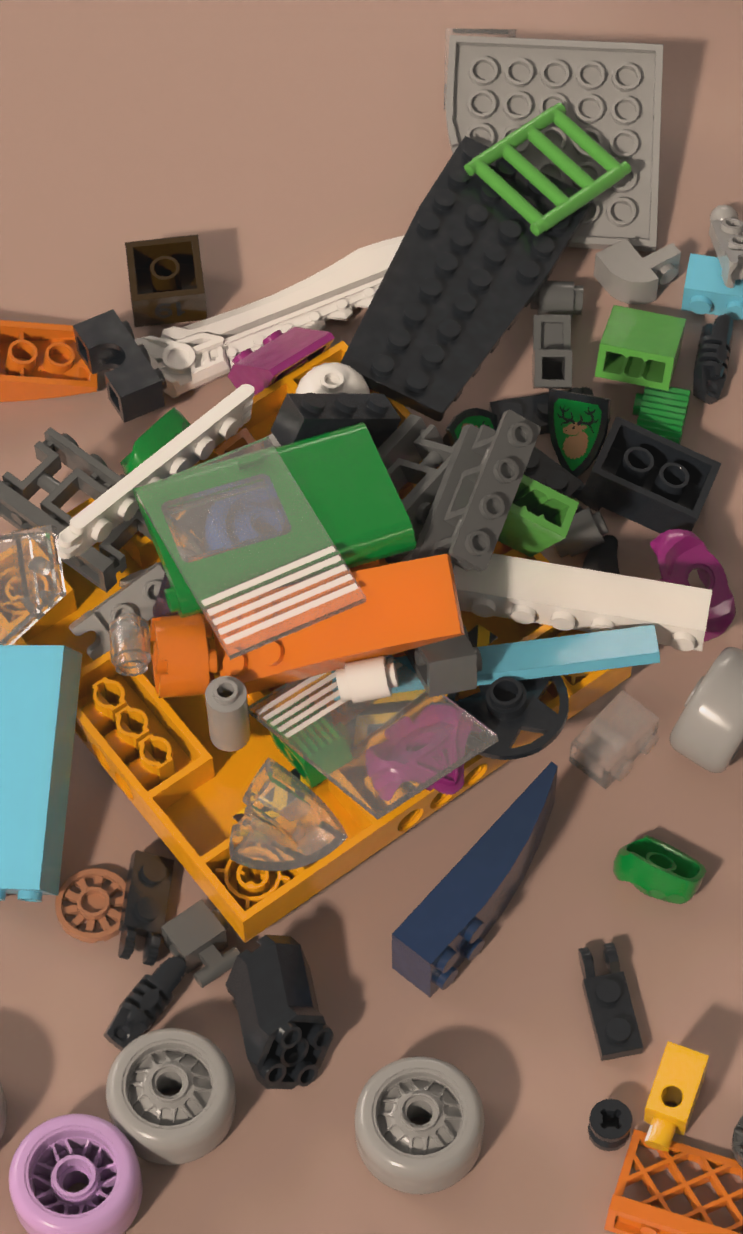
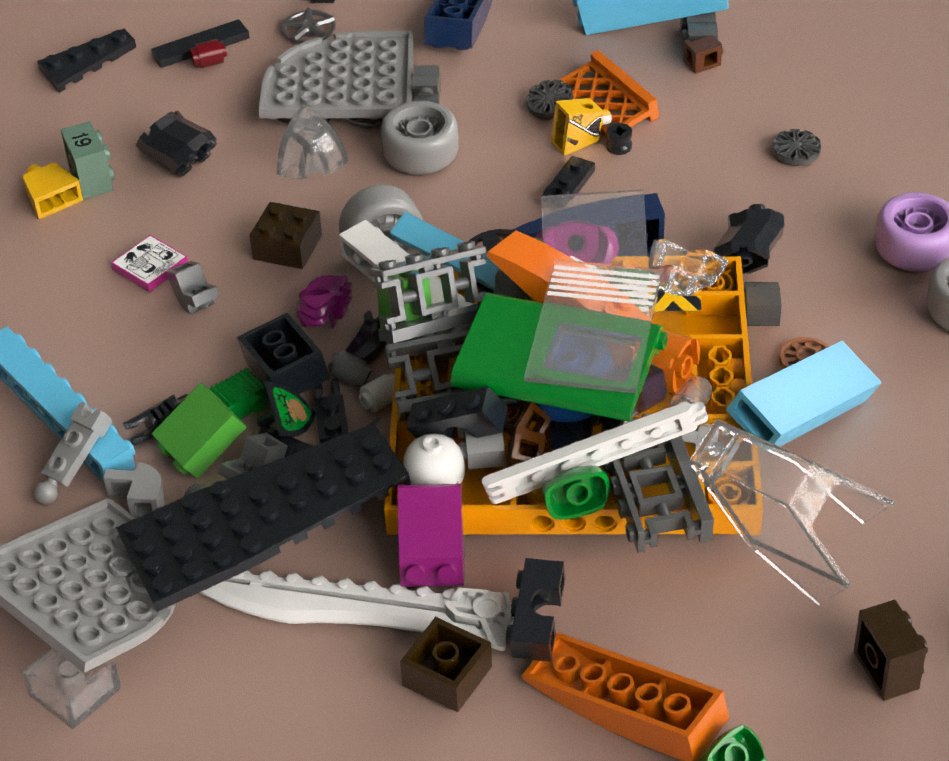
camera: 140 degrees left, 15 degrees down
(145, 904) = (780, 334): black hinge -> none
(145, 1003) = (814, 294): black hinge -> none
(180, 1125) = (836, 242): light grey wheel -> none
(227, 713) = (670, 309): light grey brick -> none
(413, 1155) = (716, 172): light grey wheel -> none
(564, 205) = (144, 564): bright green bar -> none
(659, 870) = (486, 205): green piece -> none

